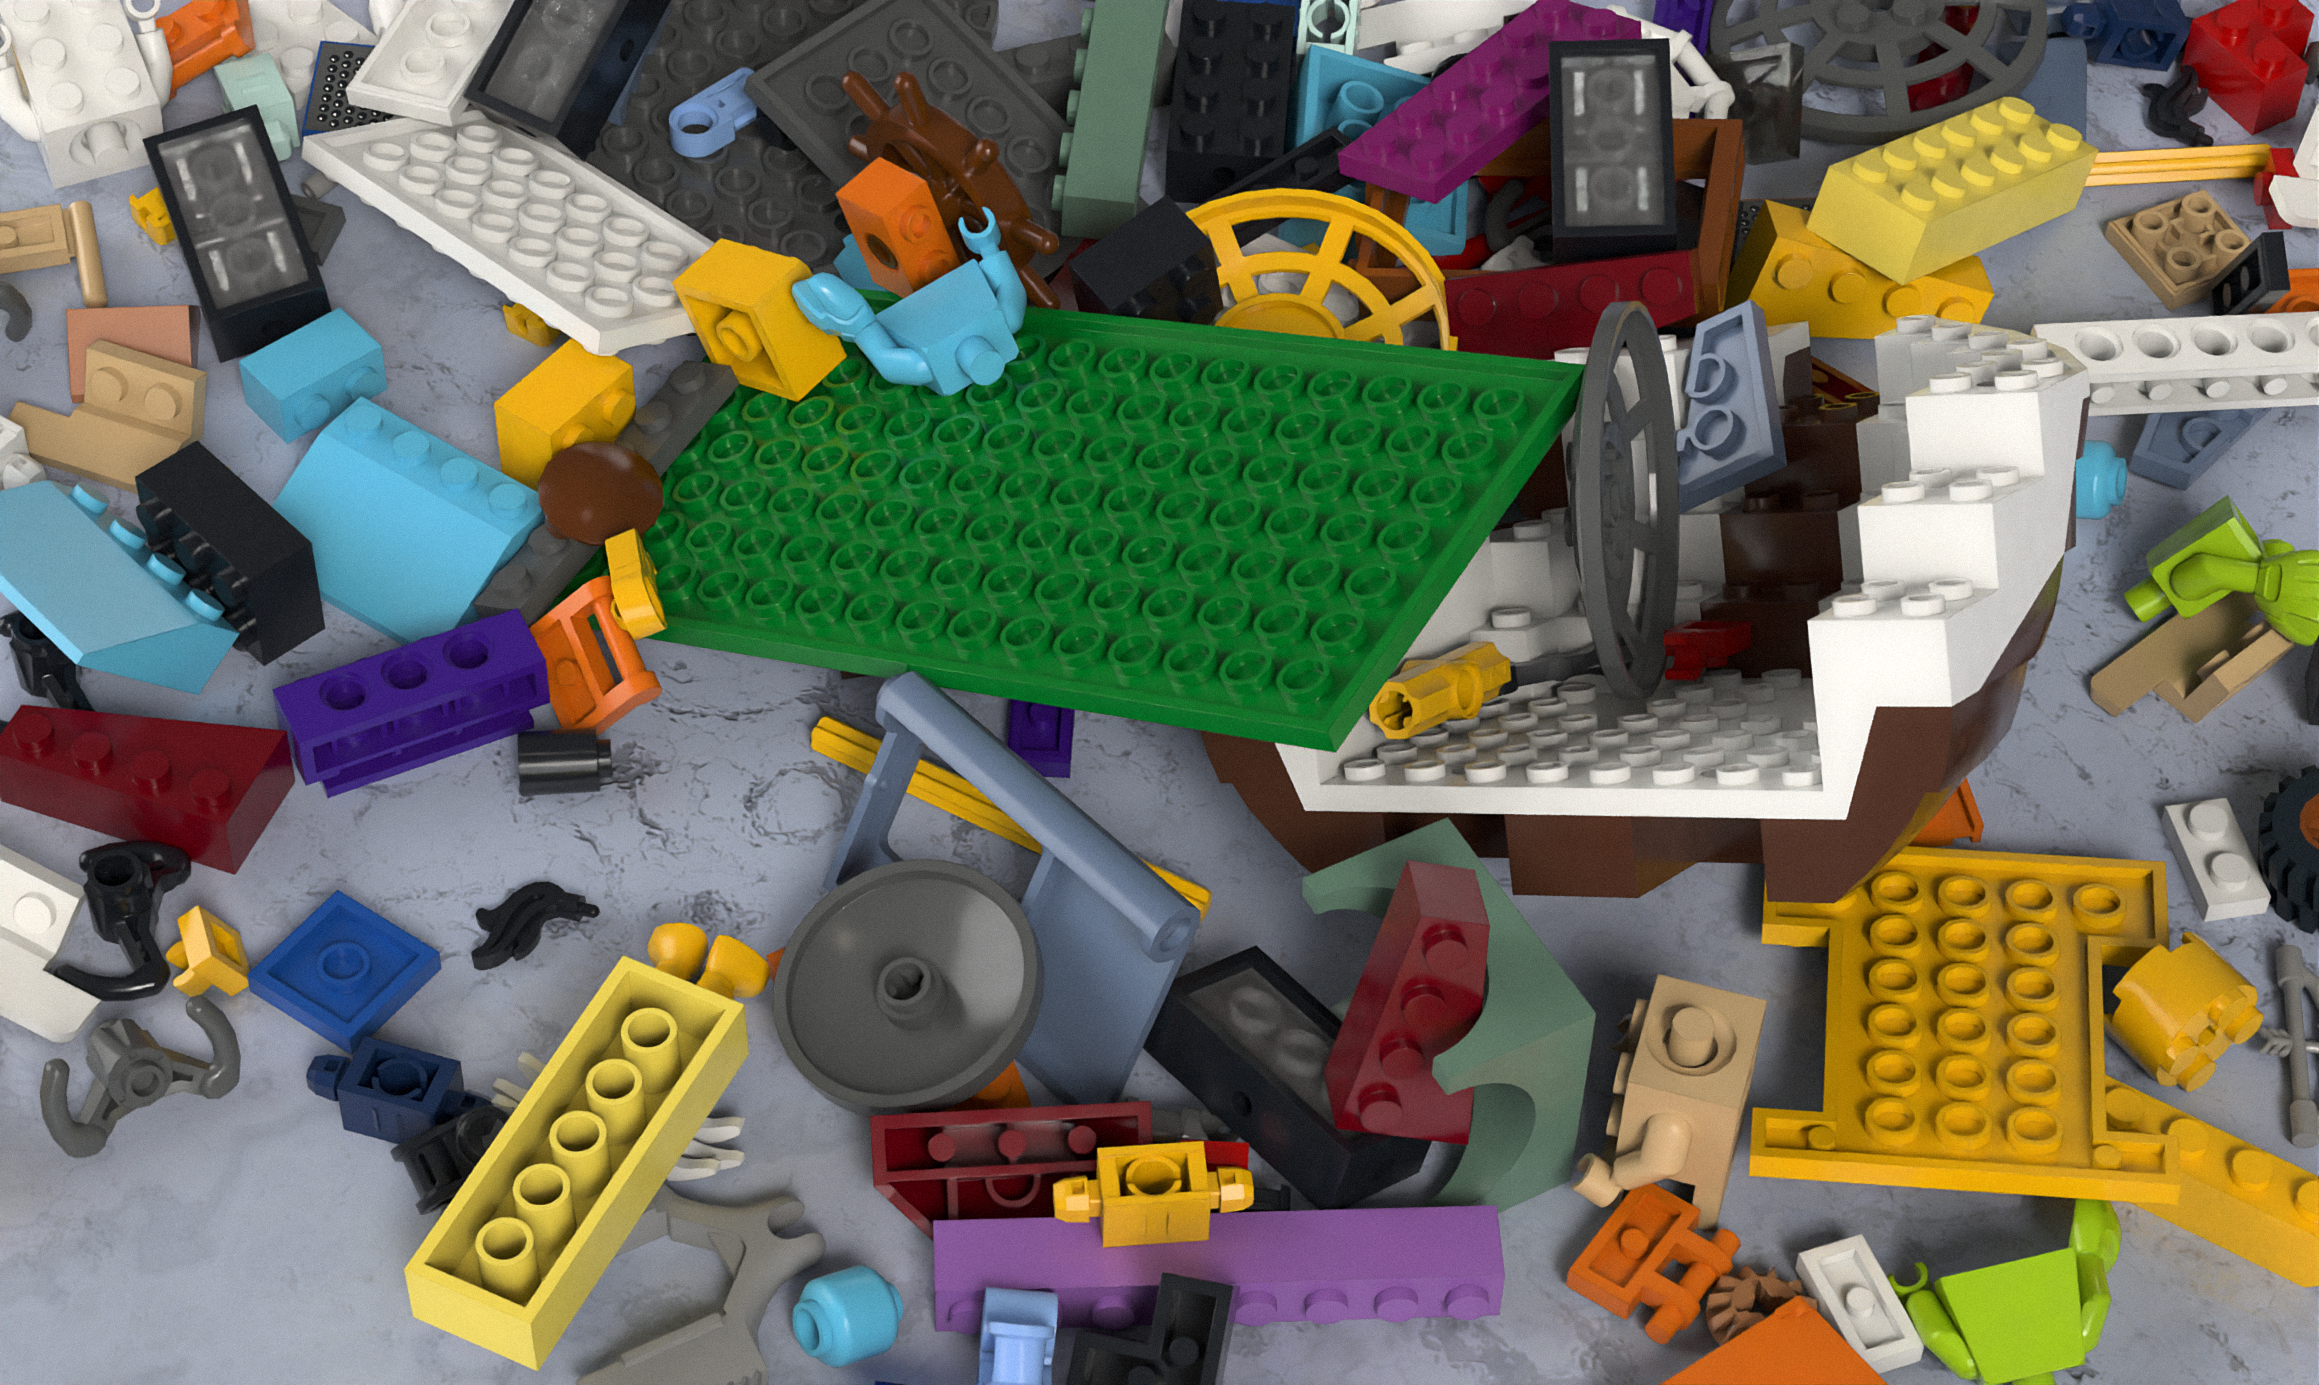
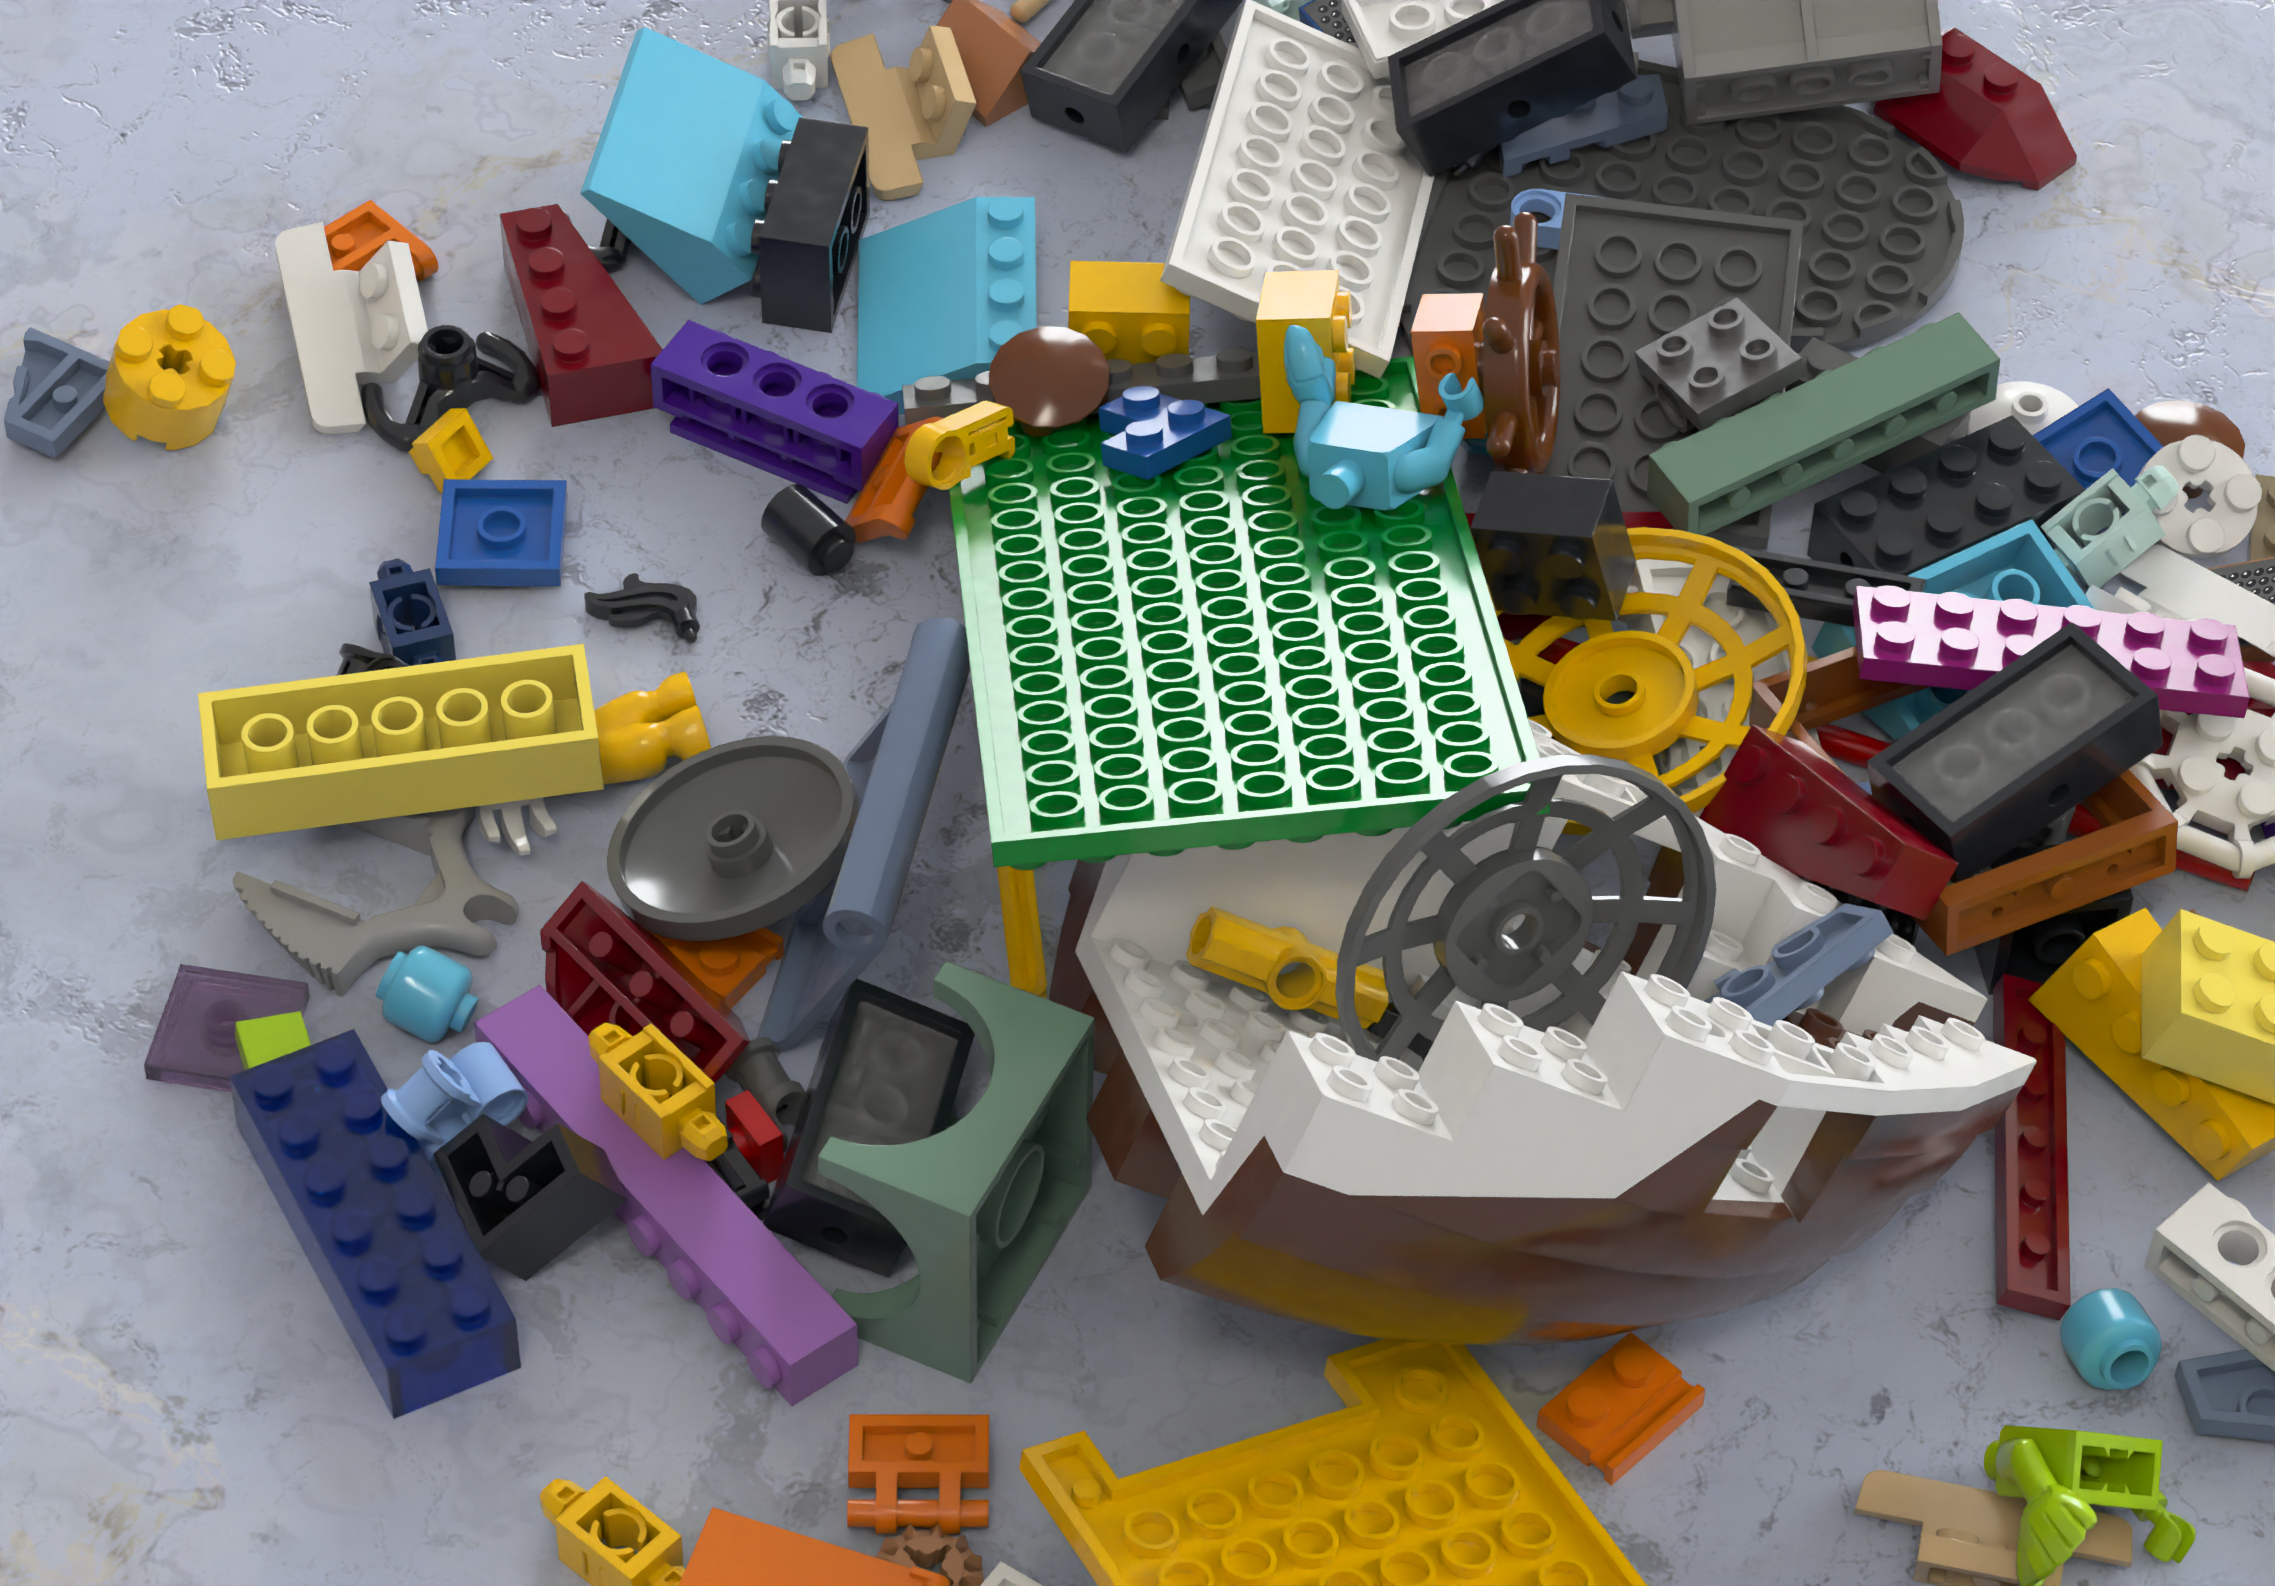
camera: 55 degrees right, 0 degrees up
(134, 1074) = (302, 474): dark grey piece -> none
(313, 374) = (1059, 164): medium azure brick -> none
(743, 453) = (1157, 431): none -> blue plate
(1013, 100) = (1717, 366): none -> flat silver plate
(1410, 1006) = (910, 1087): dark red wedge -> none
(1678, 1095) = (1044, 1366): tan torso -> none

